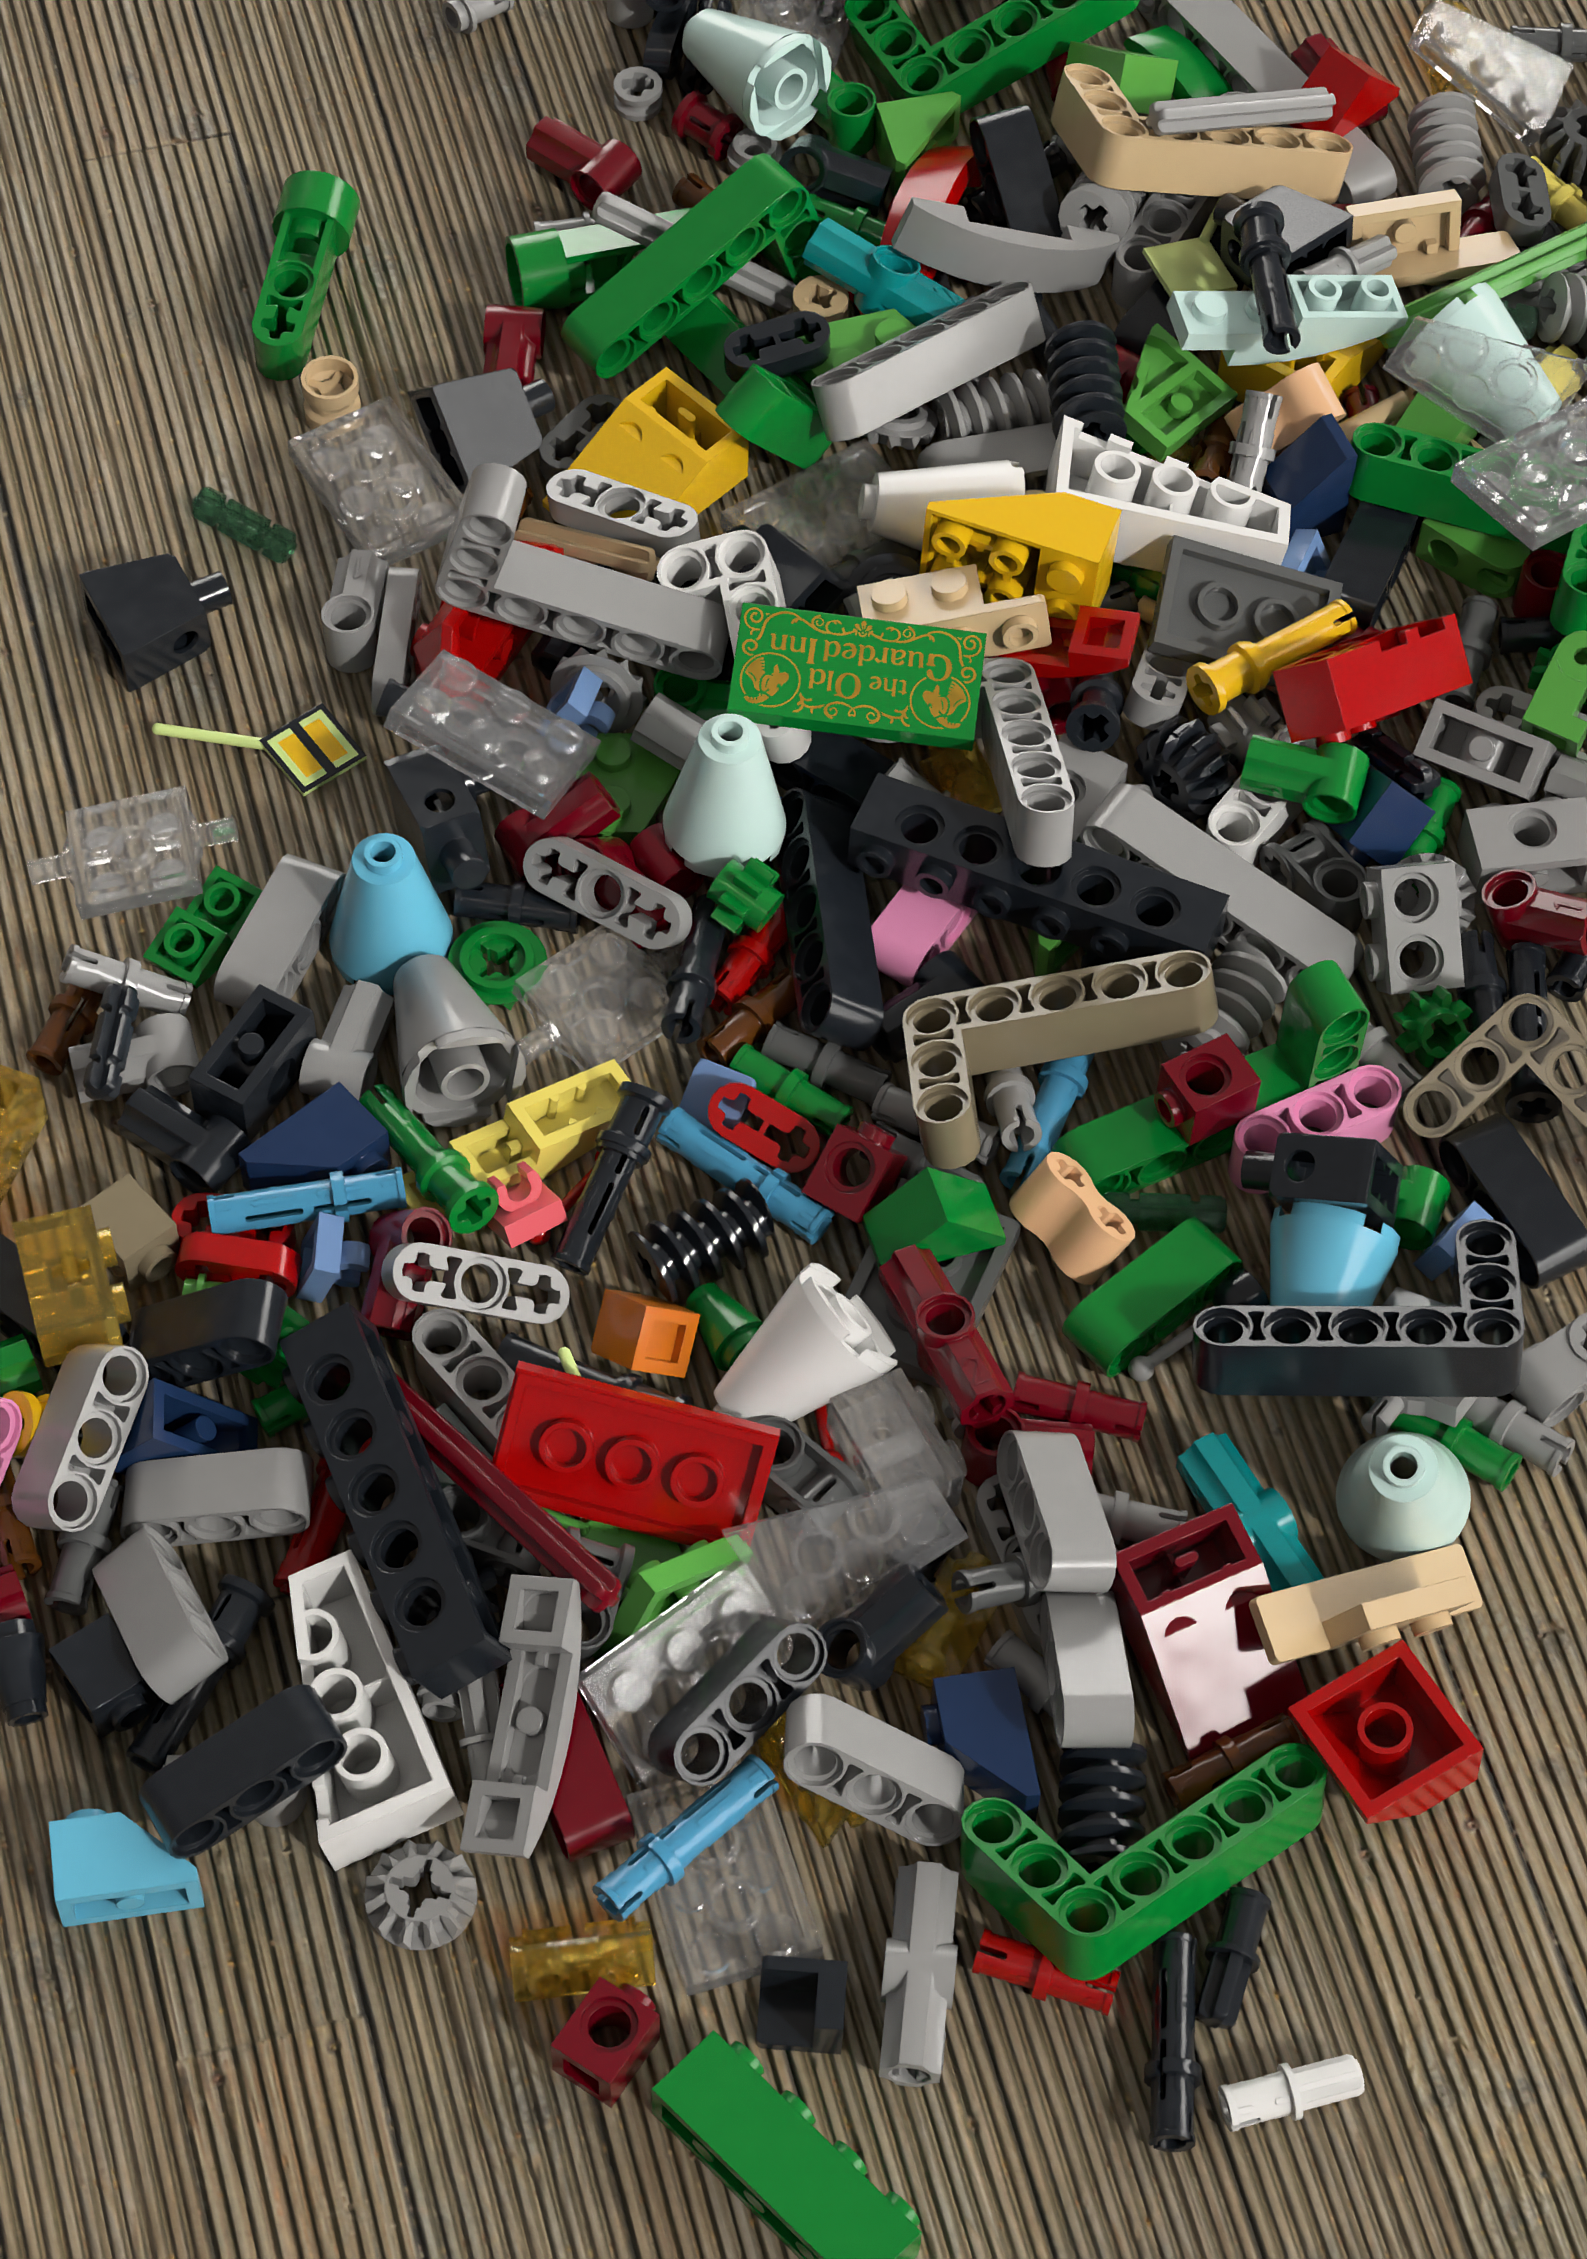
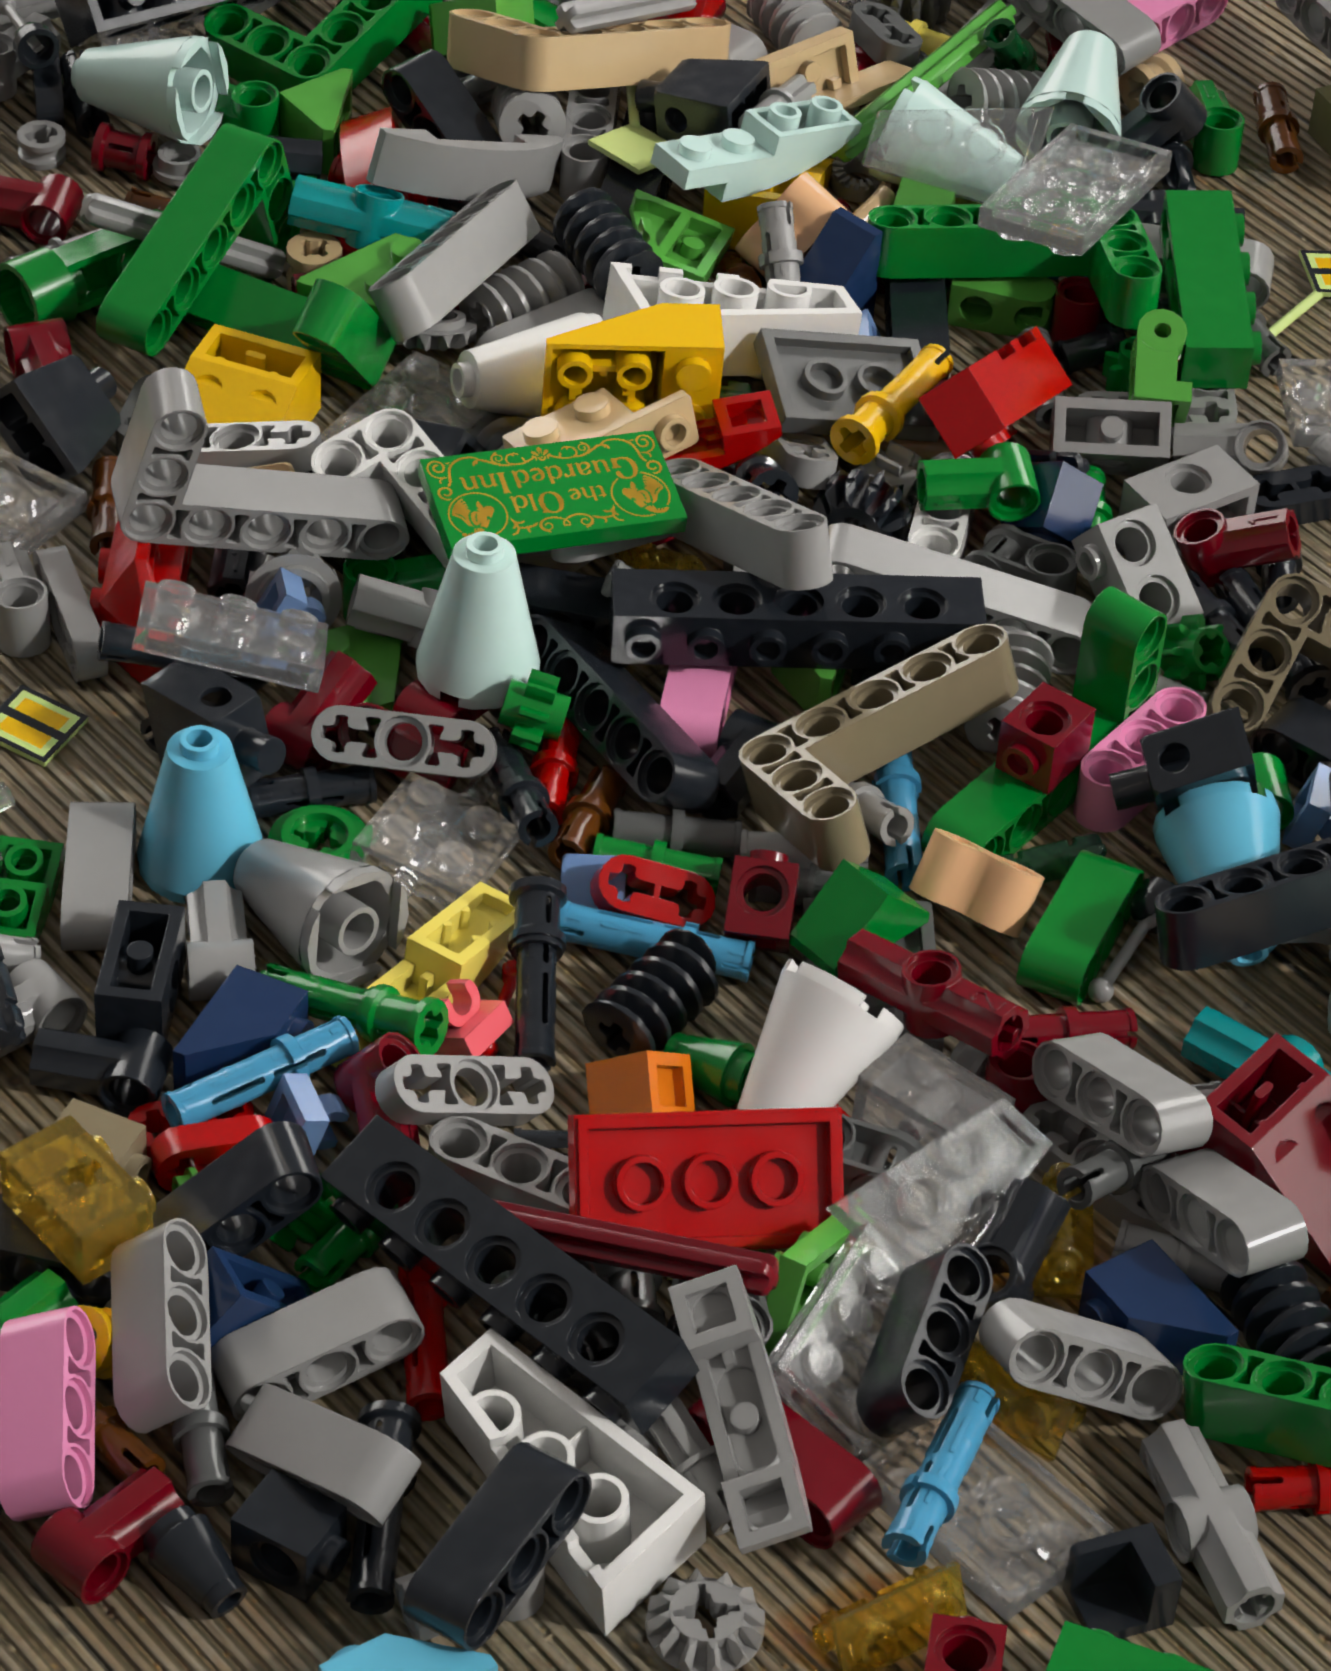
camera: 25 degrees left, 15 degrees down
(777, 346) = (291, 284): black beam -> none
(1265, 260) = (723, 101): black pin -> none

